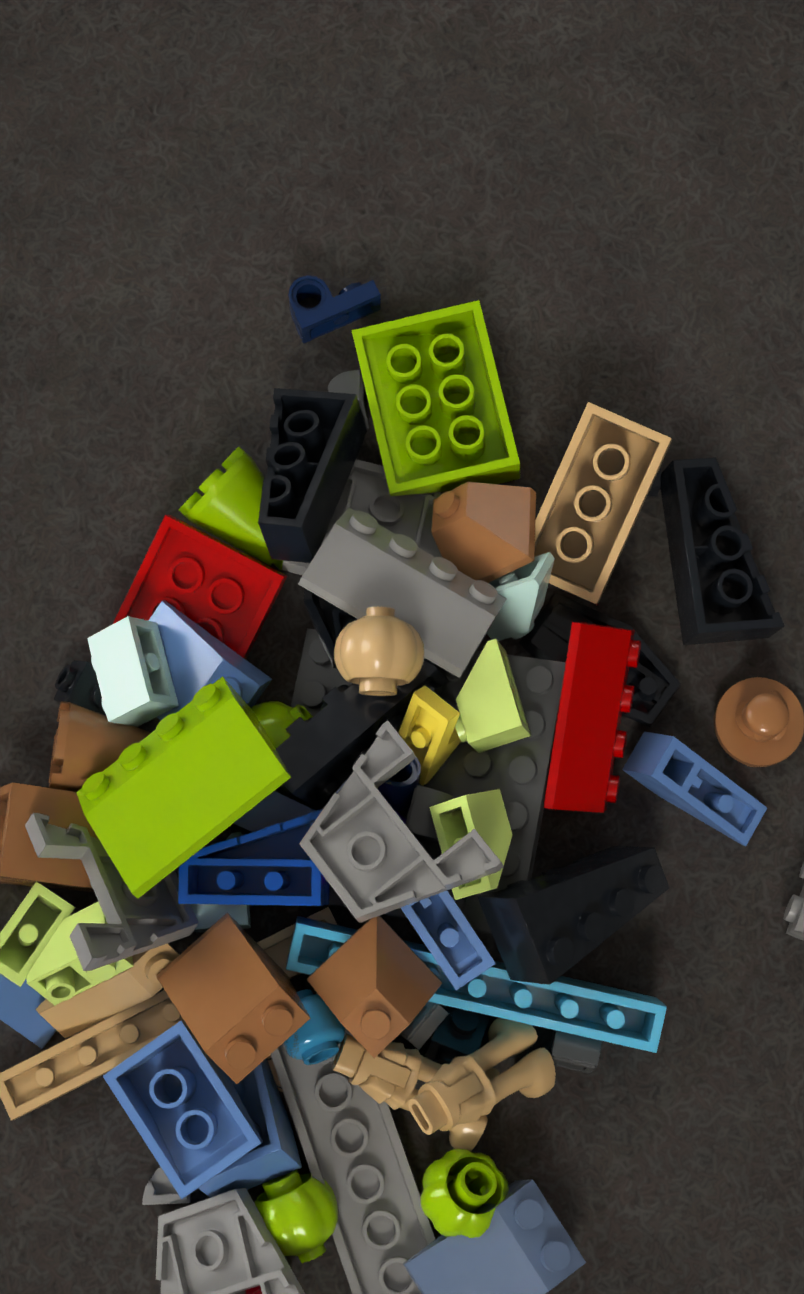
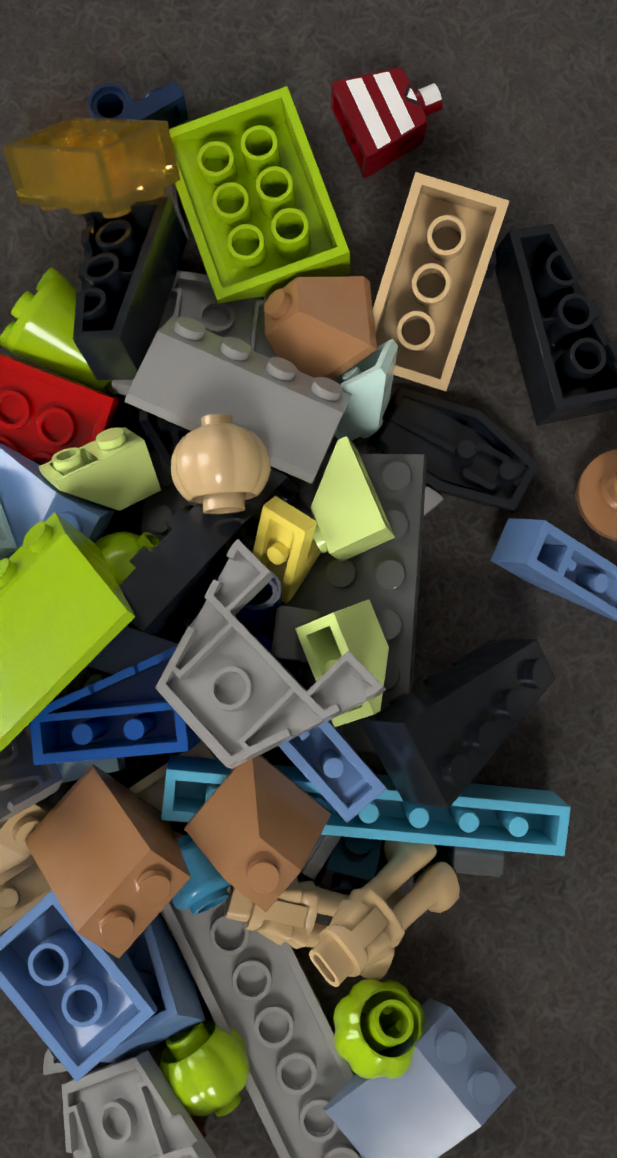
camera: 10 degrees left, 5 degrees up
(270, 643) = (107, 471): none -> yellowish green slope
(289, 356) = (93, 165): none -> clear yellow brick
(568, 331) = (382, 116): none -> dark red torso
(590, 718) = (454, 510): red slope -> none

